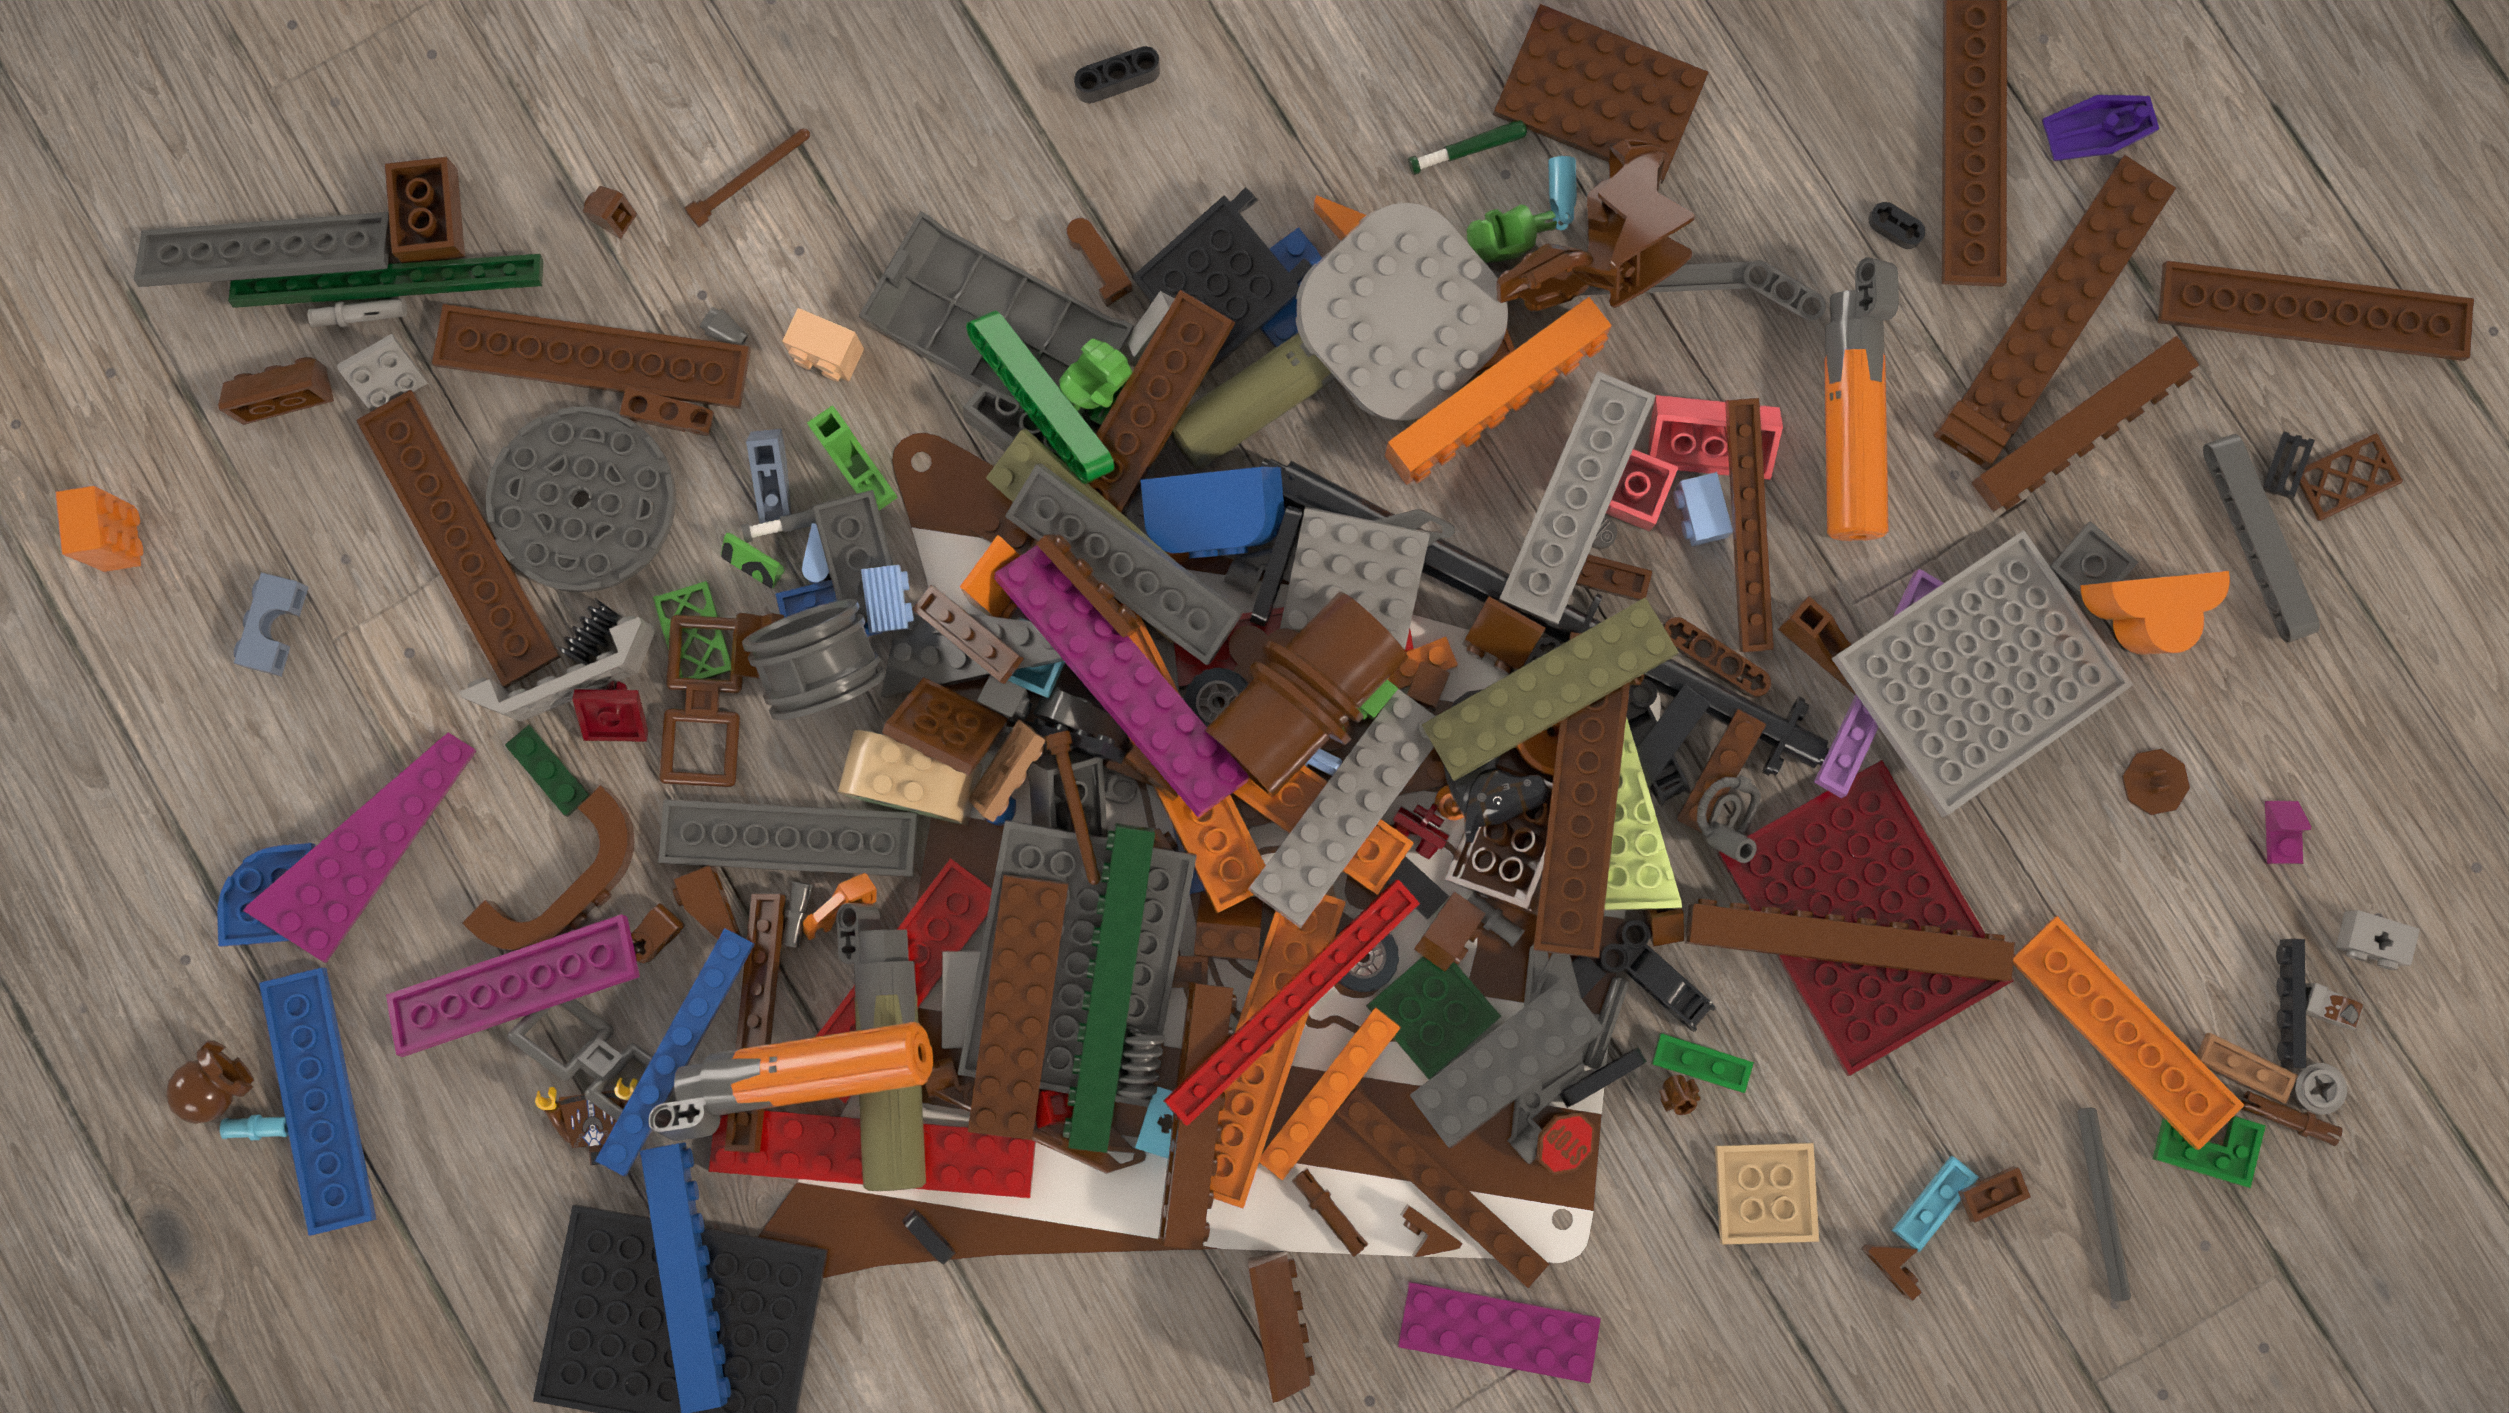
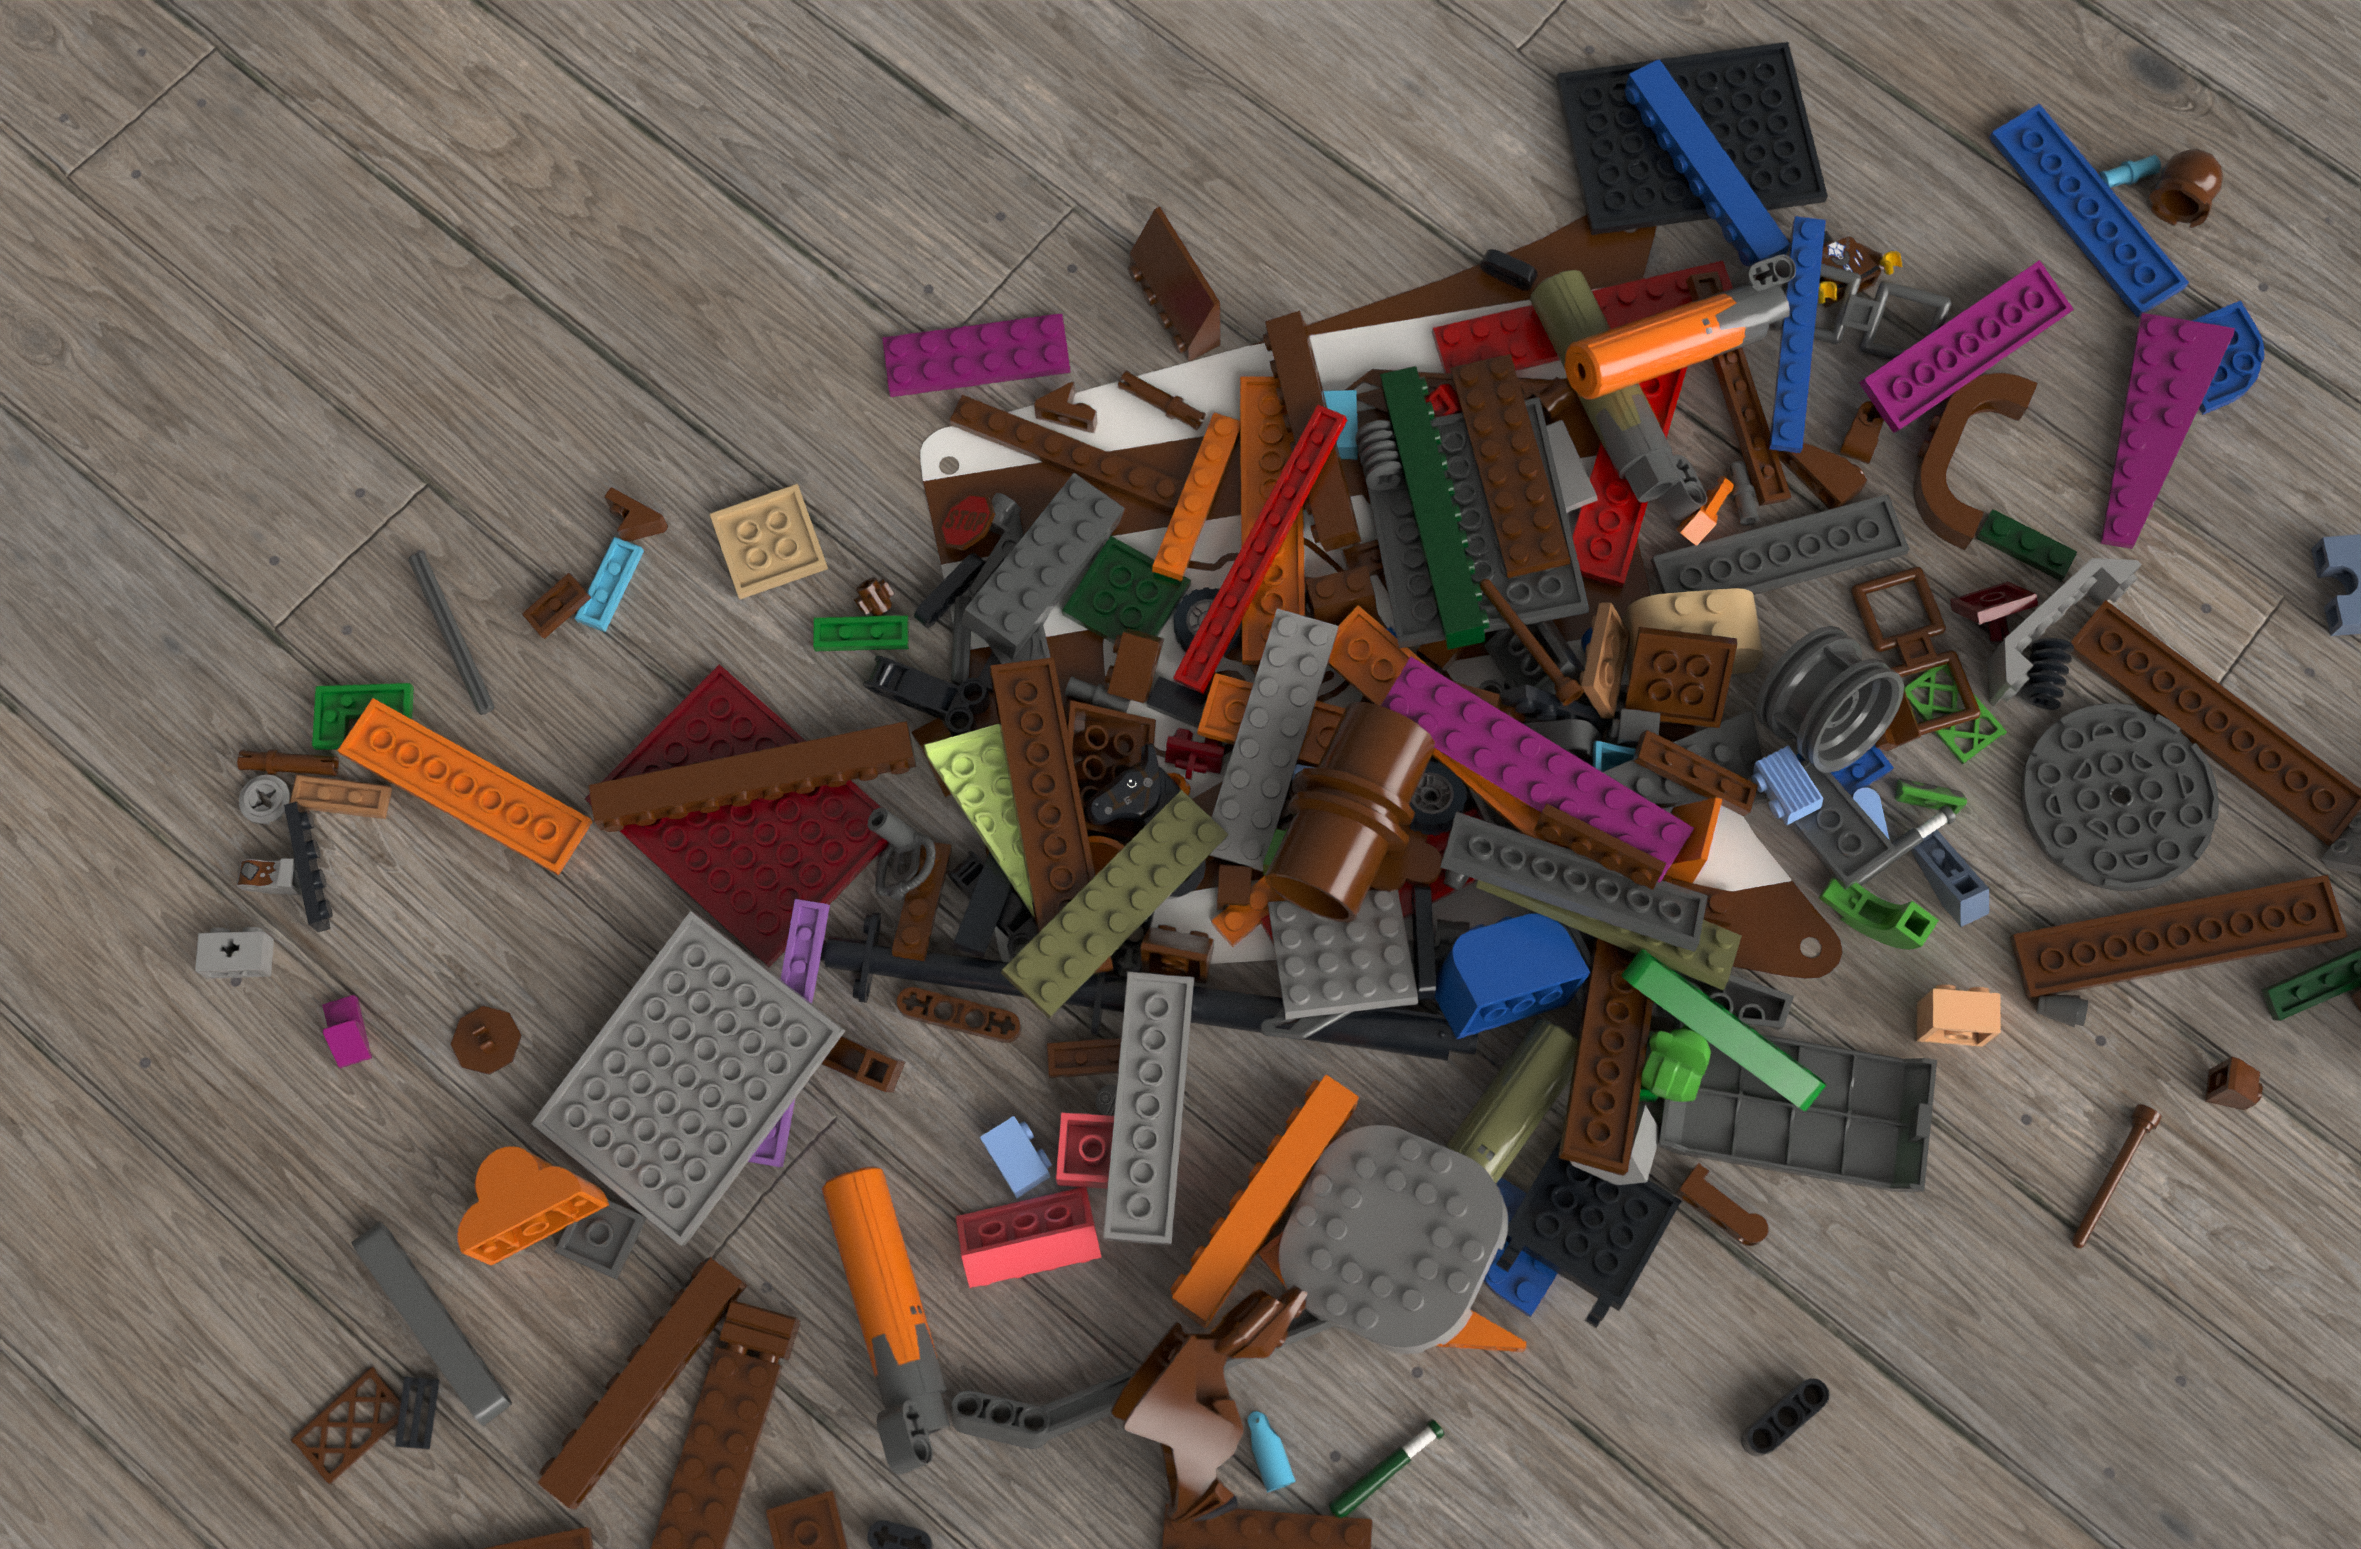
camera: 165 degrees right, 10 degrees down
(665, 412) = (2079, 904): reddish brown leg -> none
(1507, 234) = (1306, 1378): bright green piece -> none
(1749, 524) = (966, 1149): reddish brown plate -> none

